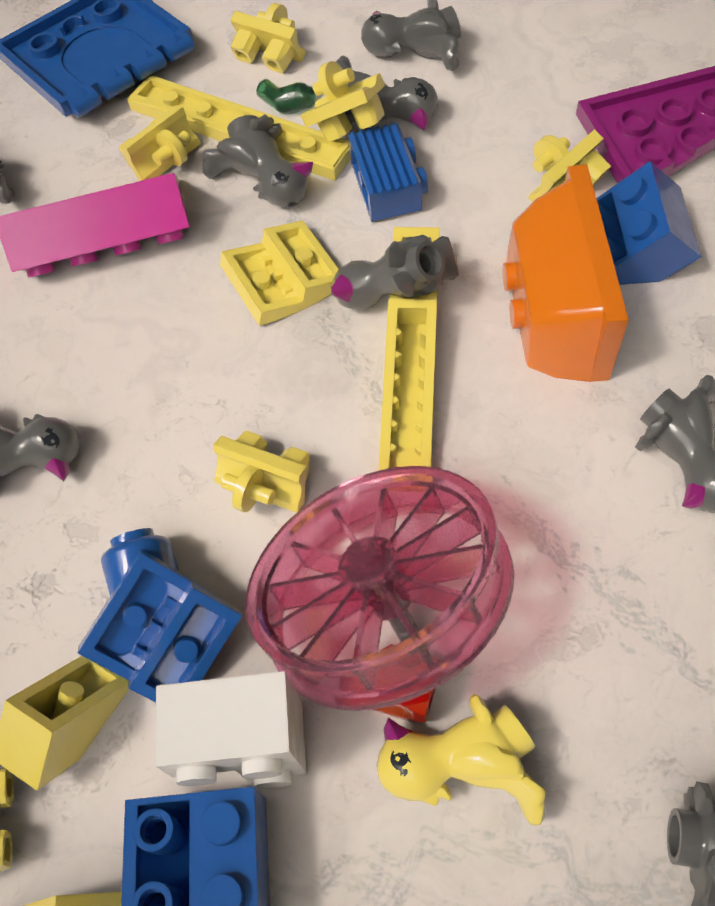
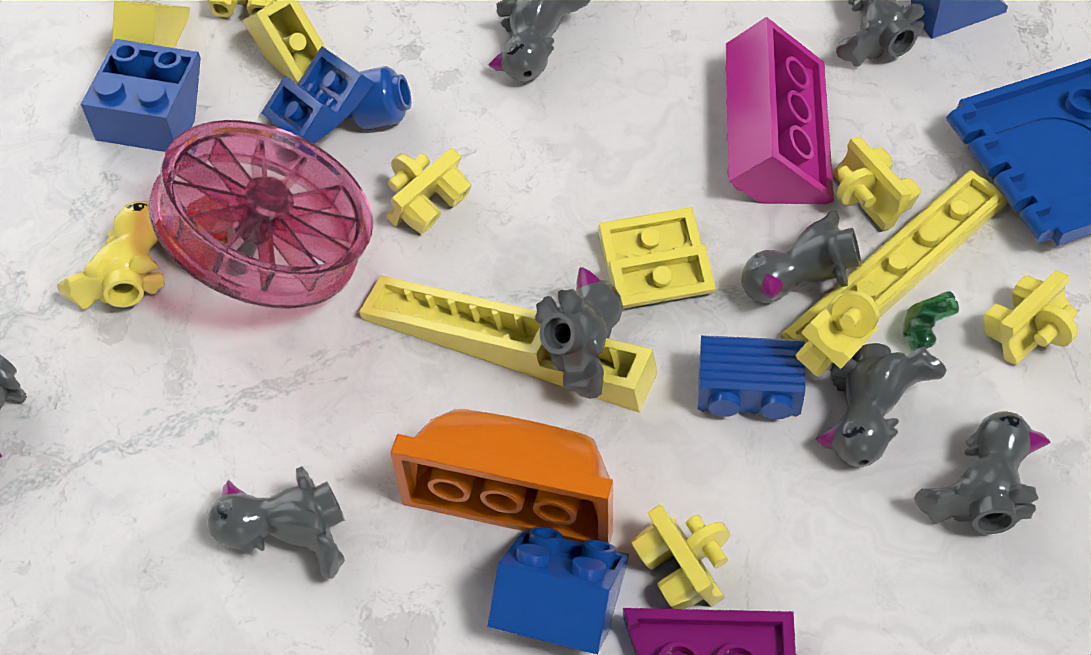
camera: 105 degrees right, 5 degrees down
(231, 726) = (207, 91): white slope -> none

